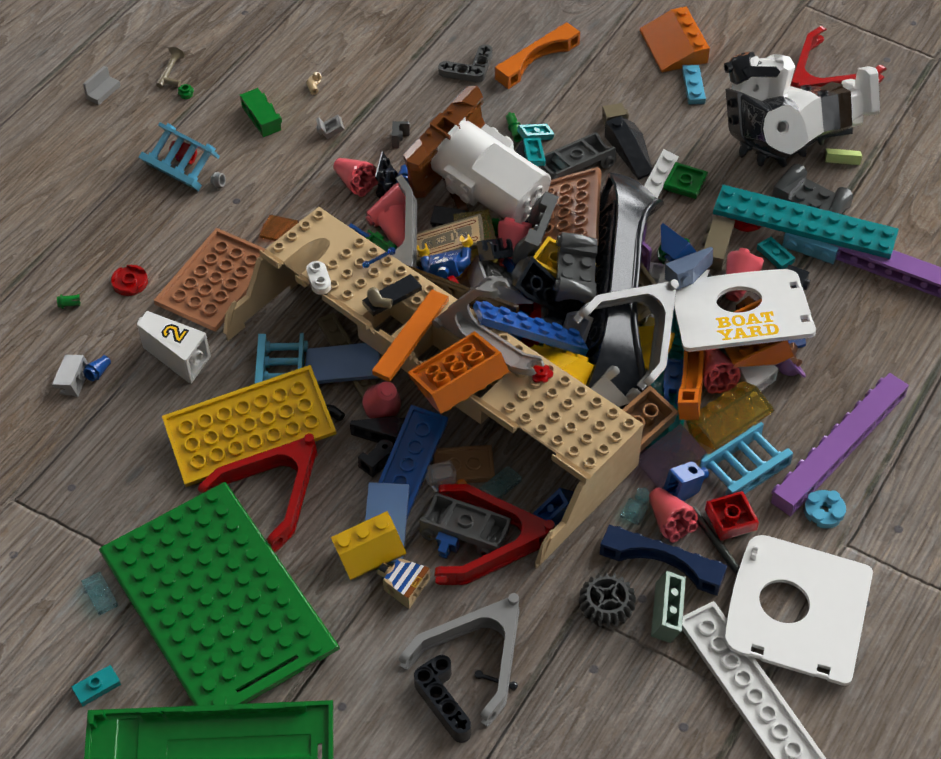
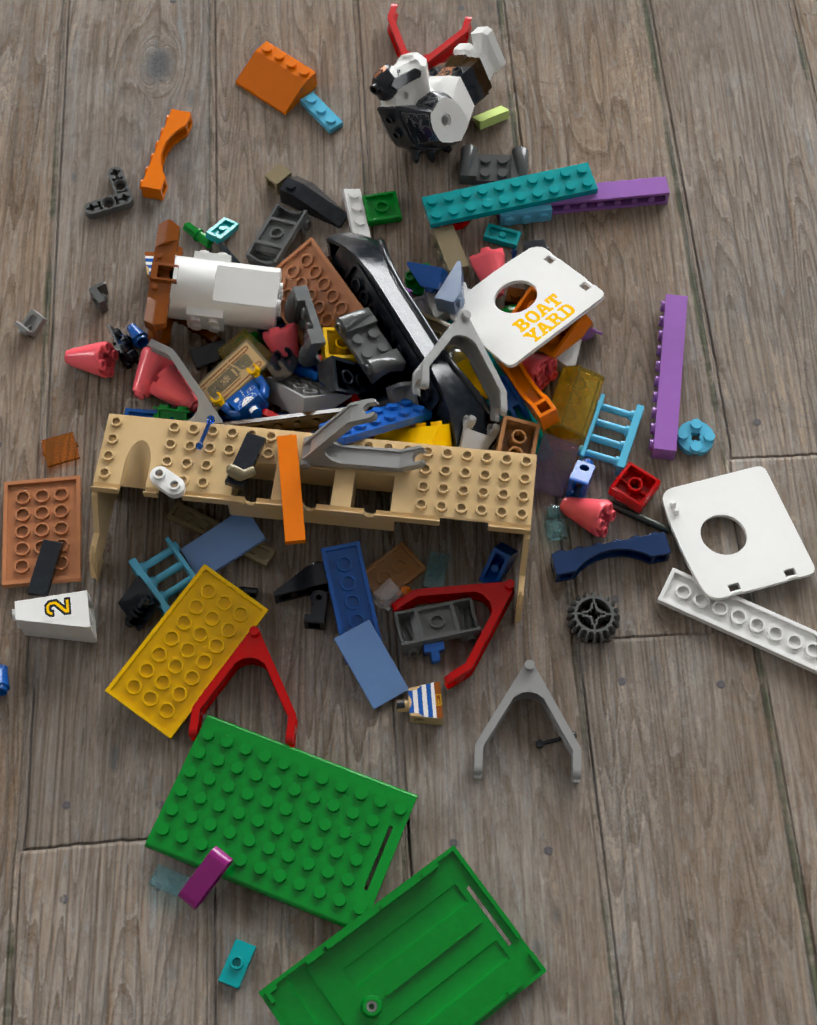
camera: 35 degrees left, 10 degrees up
(121, 600) = (205, 877): none -> magenta beam
(194, 304) = (45, 568): none -> black tile
(241, 371) = (138, 604): none -> black hinge
(368, 545) = (375, 693): yellow slope -> none
(381, 400) = (283, 559): coral cone -> none
(445, 702) = (535, 783): black beam -> none
(459, 372) = (359, 499): orange slope -> none
(534, 151) = (240, 251): teal plate -> none
(542, 374) = (428, 457): red plant -> none
(668, 607) = (645, 594): sand green brick -> none

